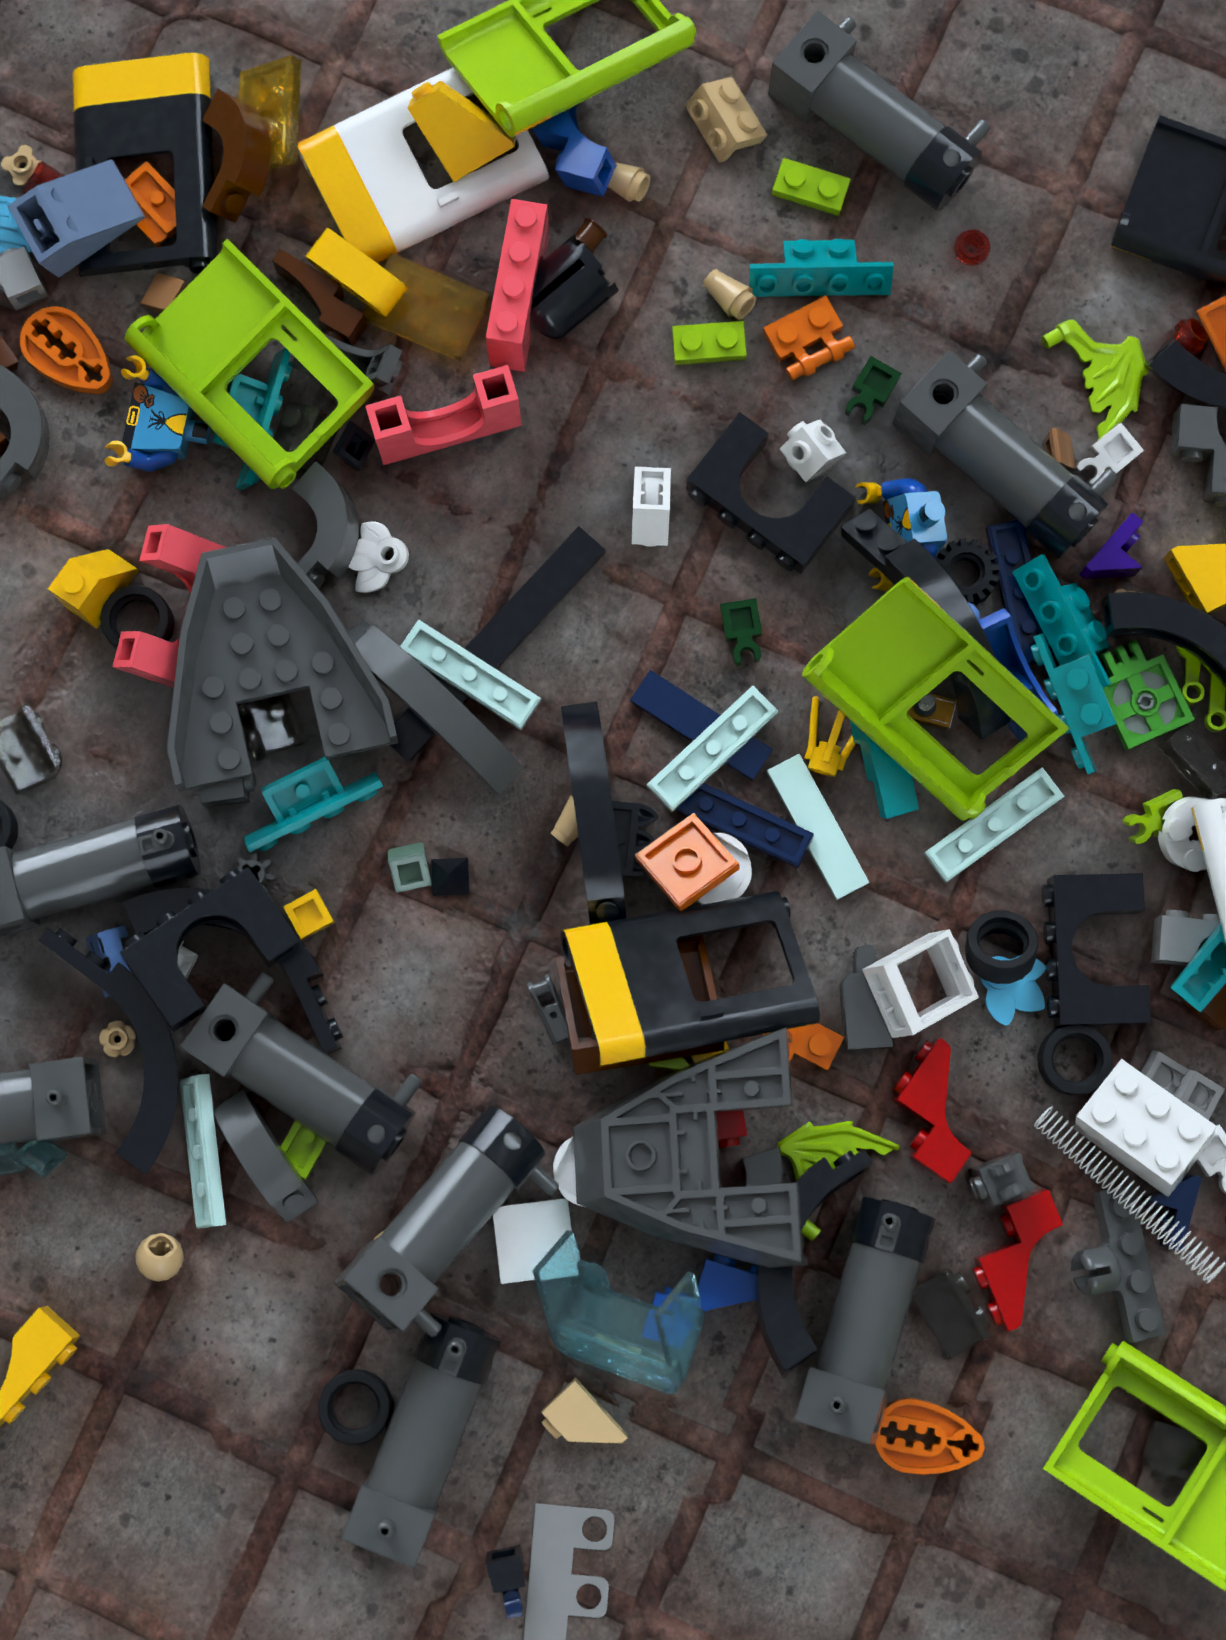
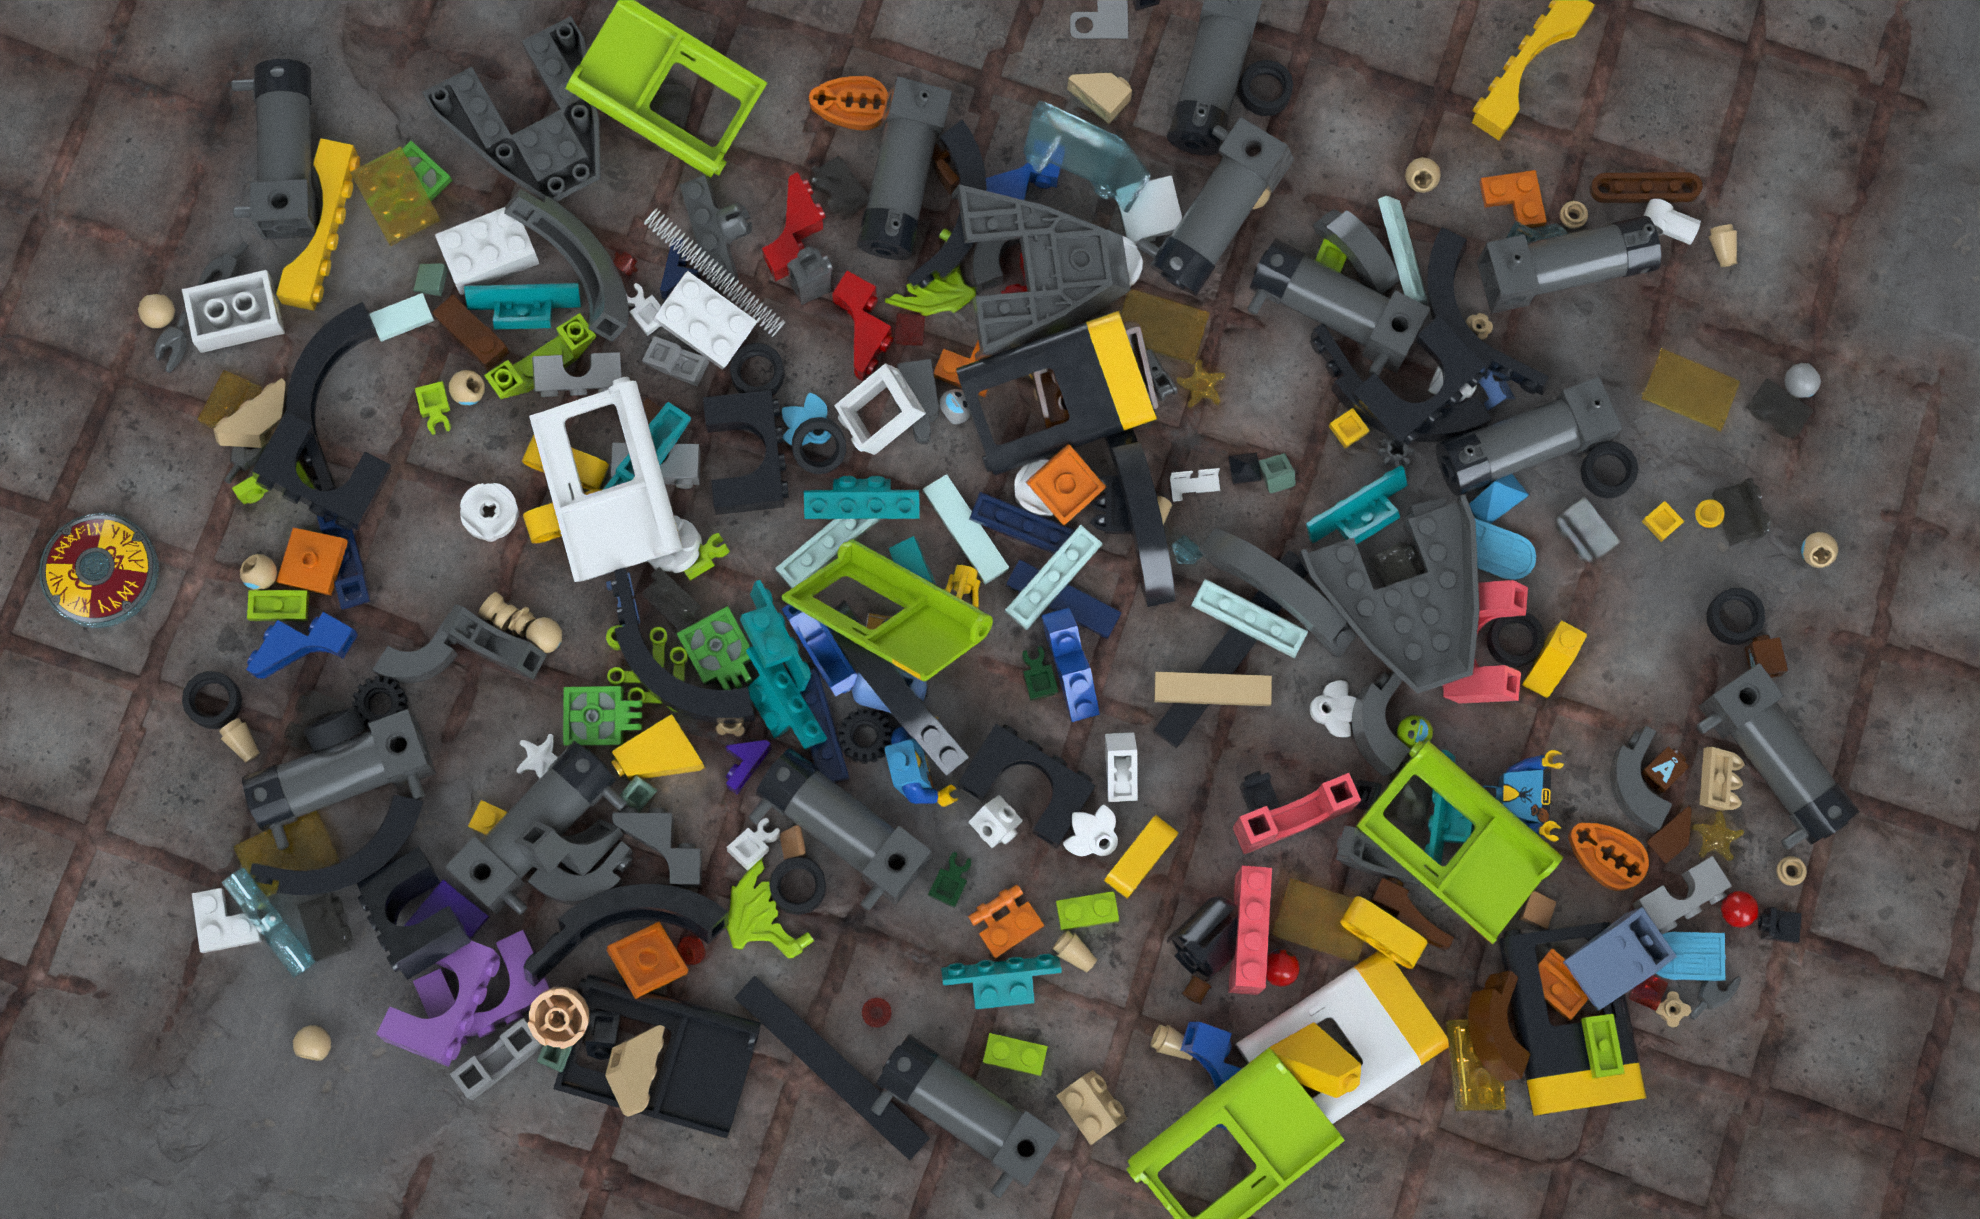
camera: 170 degrees right, 5 degrees down
(29, 1226) = (1517, 189): none -> orange plate
(114, 119) = (1602, 1046): none -> lime plate
(132, 801) = (1498, 499): none -> dark azure slope
(135, 737) = (1503, 552): none -> medium azure window
(282, 513) = (1414, 729): none -> lime piece
(482, 252) = (1282, 968): none -> red piece
(484, 460) = (1259, 792): none -> black bracket
(493, 992) = (1201, 385): none -> clear yellow animal
(526, 589) = (1213, 689): none -> tan tile
(527, 863) = (1199, 485): none -> white piece
(534, 1080) = (1166, 325): none -> clear yellow piece
(538, 772) = (1186, 551): none -> clear light blue slope
(637, 397) = (1141, 856): none -> yellow beam
(694, 425) = (1090, 831): none -> white plate
(702, 638) = (1071, 664): none -> blue arch
(810, 1323) = (944, 172): none -> reddish brown slope
(825, 984) = (955, 406): none -> light grey piece
(869, 1102) = (909, 329): none -> clear red plate
(950, 874) = (861, 500): none -> teal bracket
(1036, 196) = (830, 1067): none -> black tile
(1063, 373) = (794, 863): none -> black tyre

